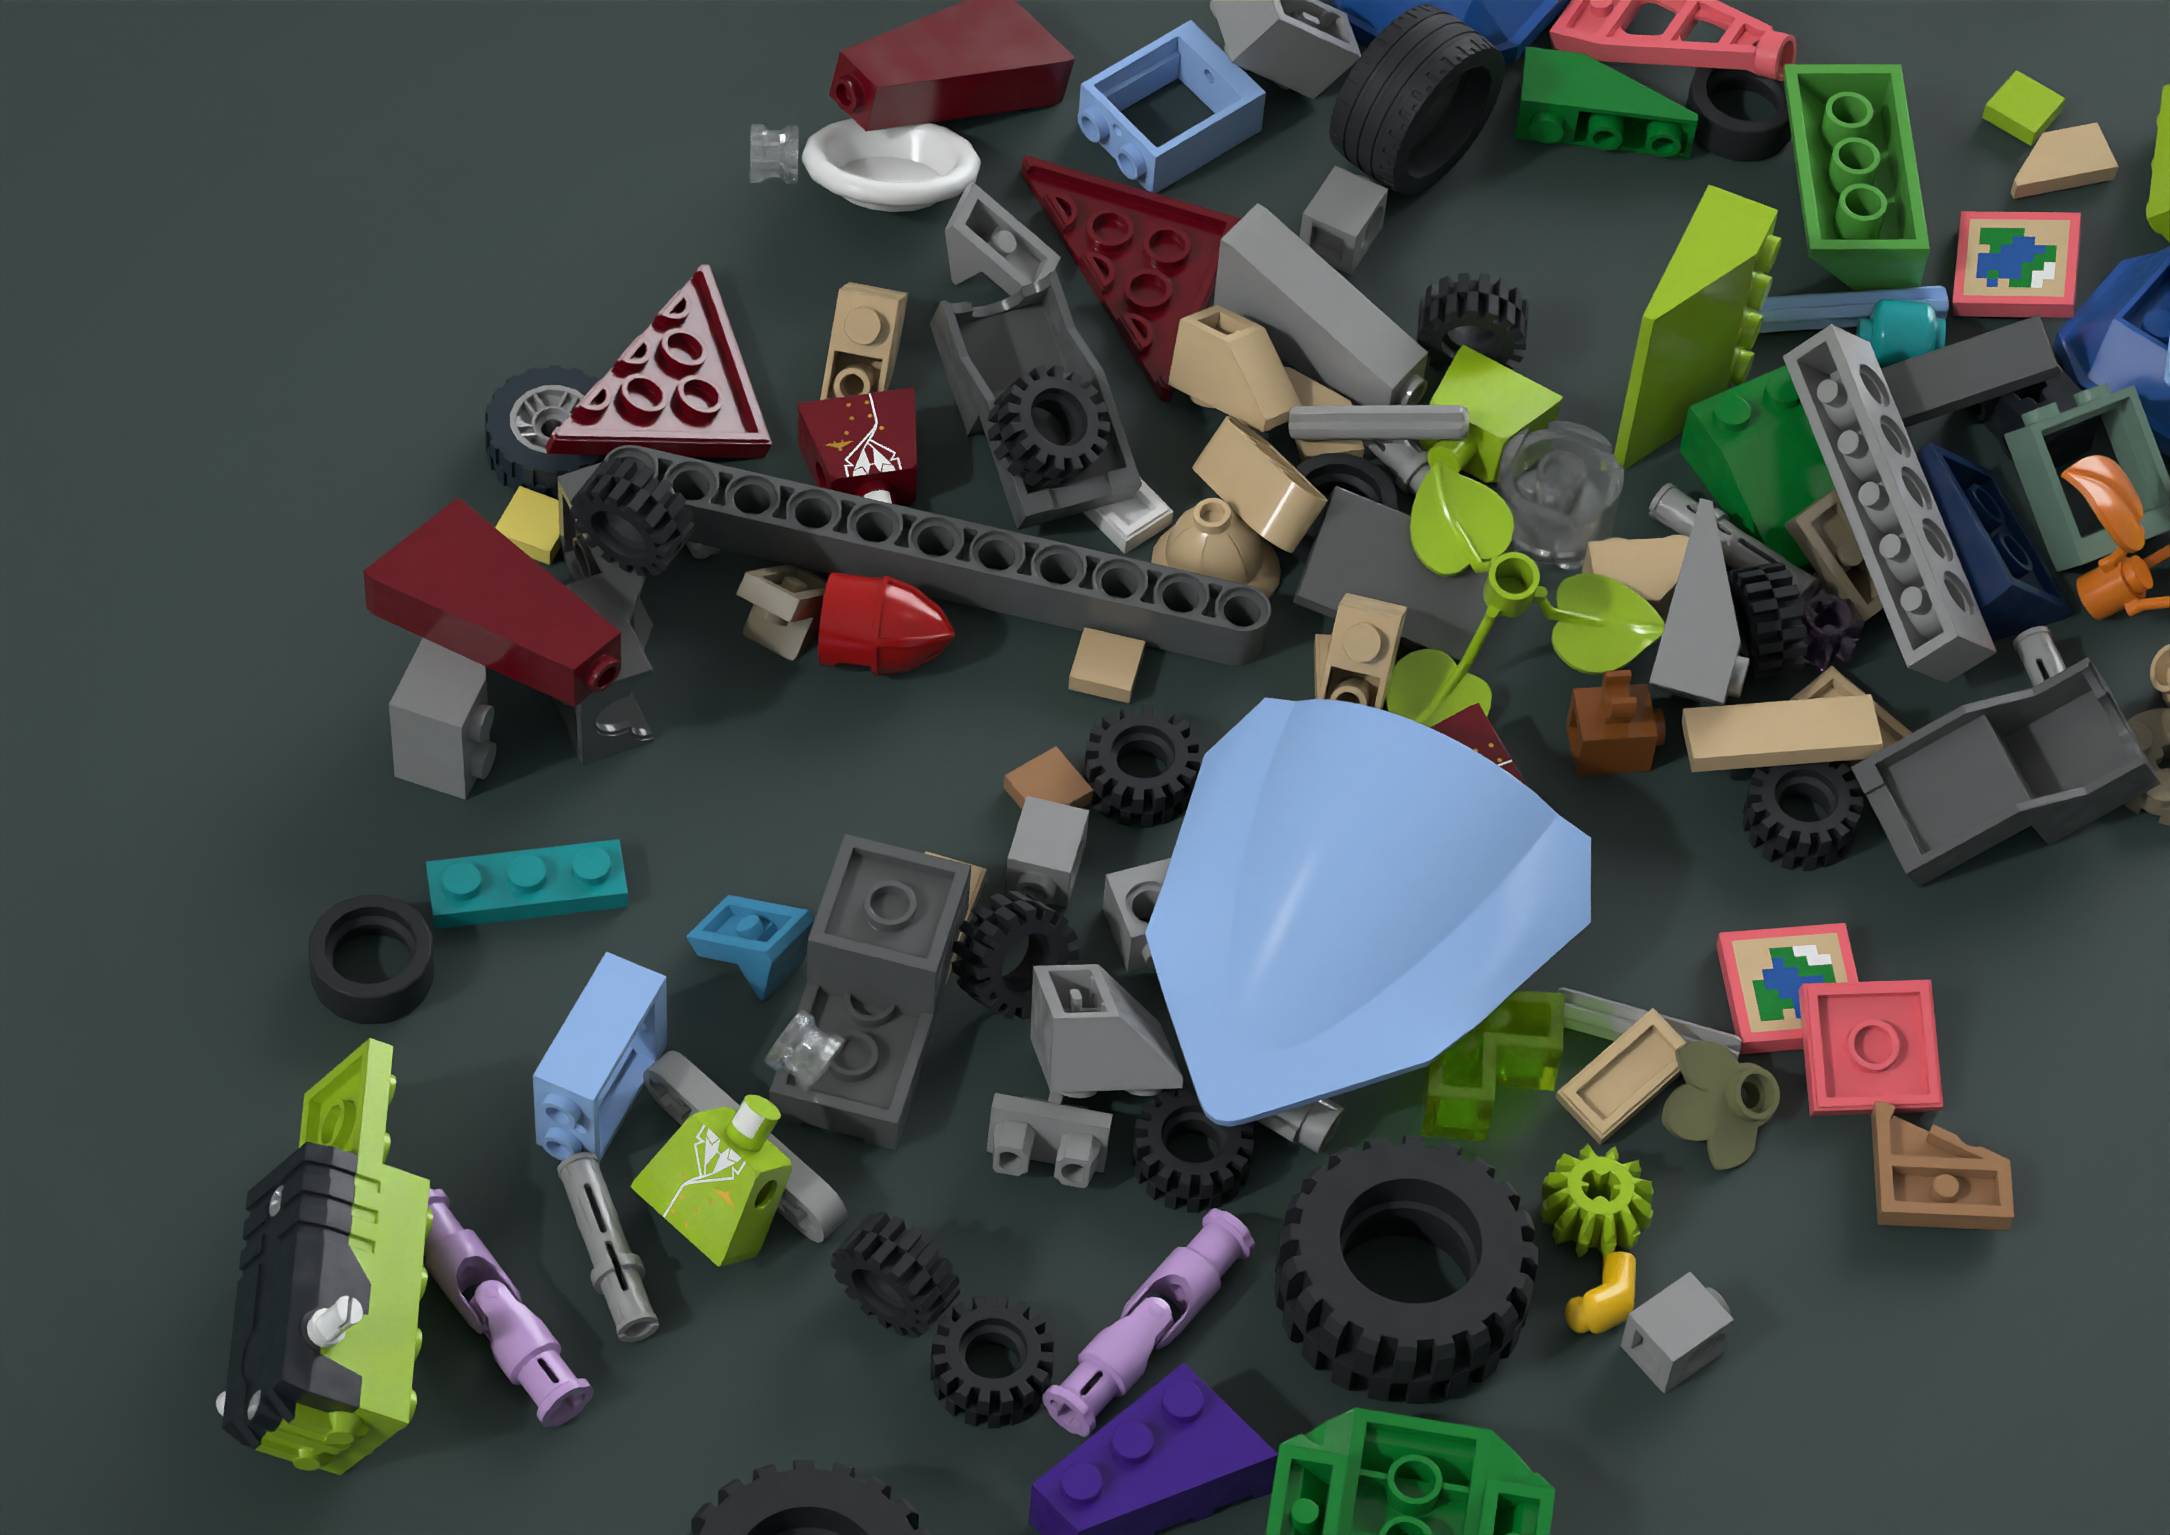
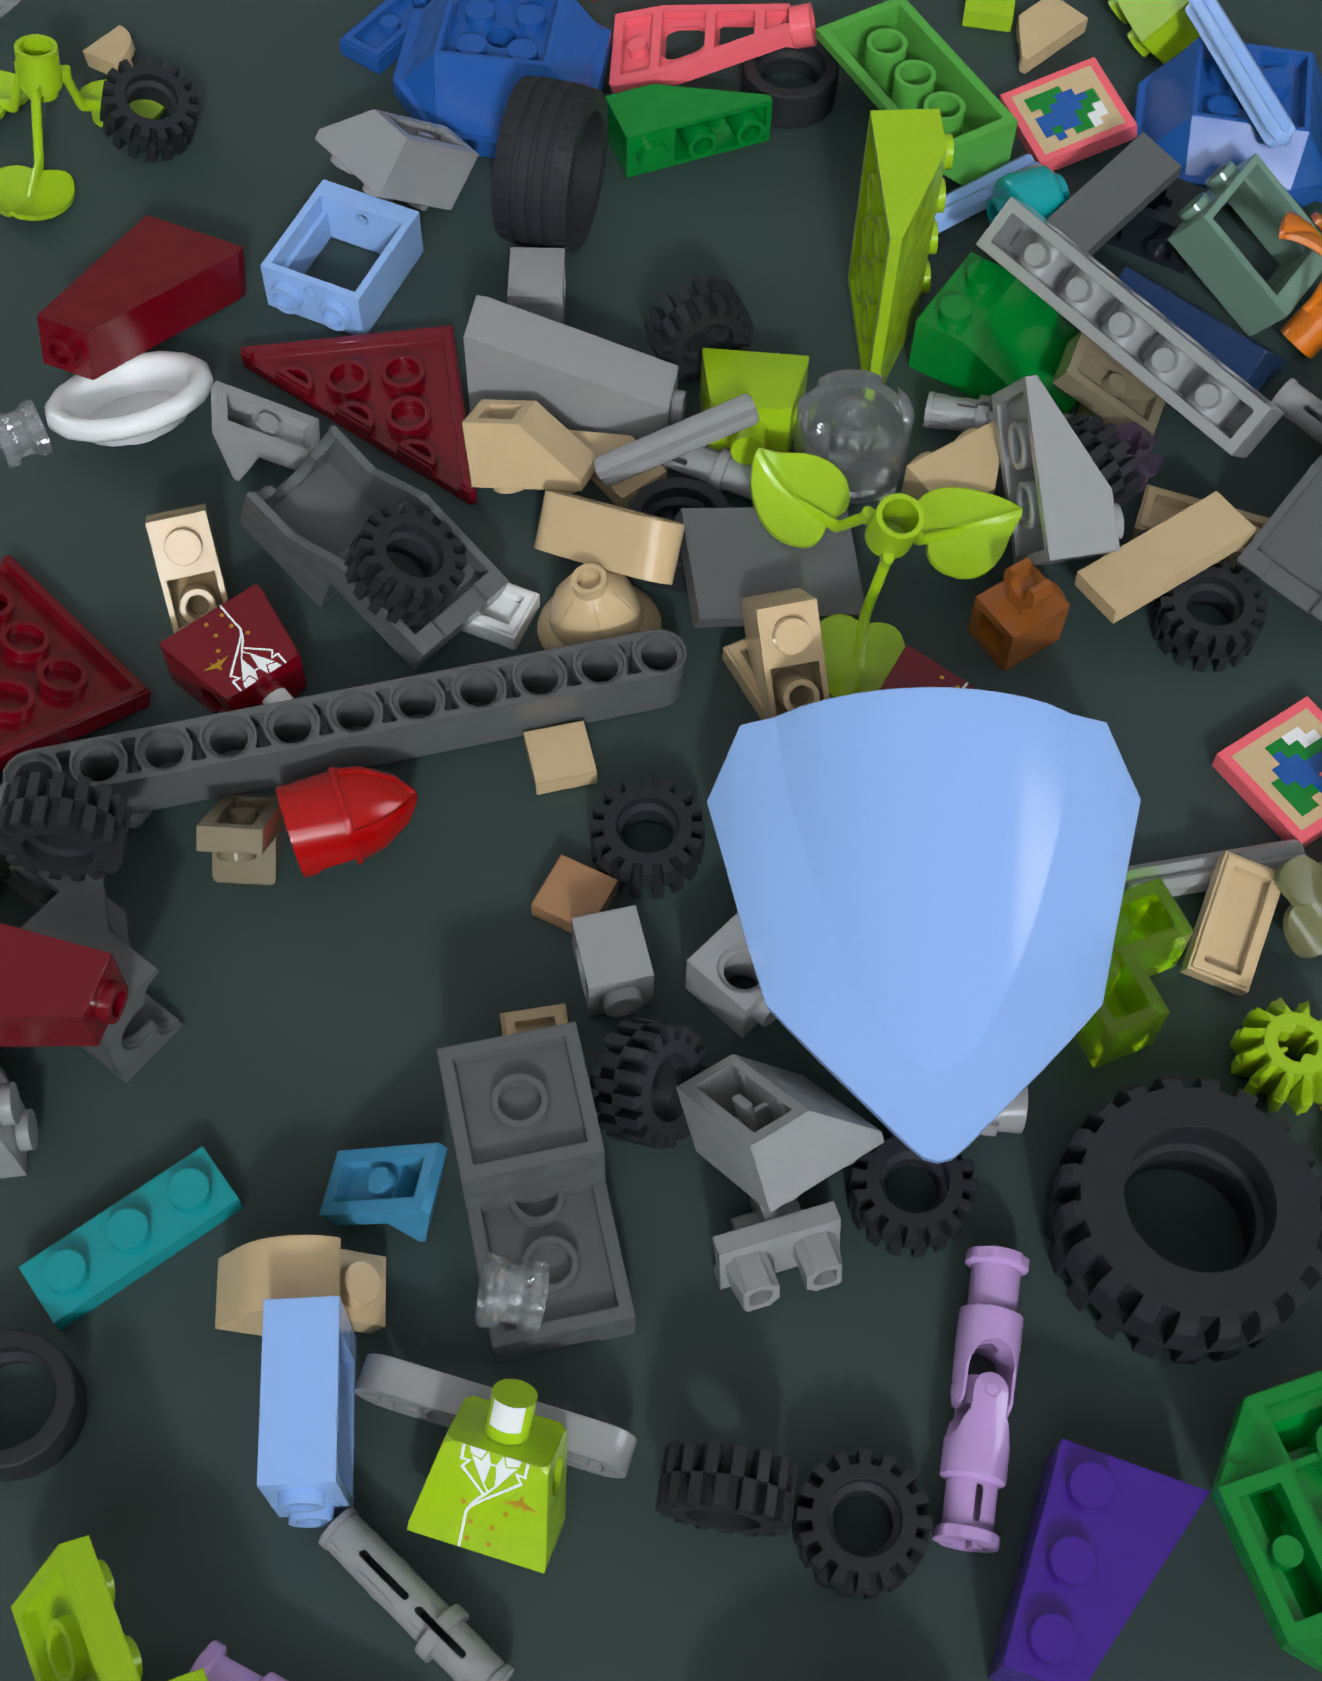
camera: 25 degrees left, 5 degrees up
(689, 993) = (298, 1269): none -> tan brick

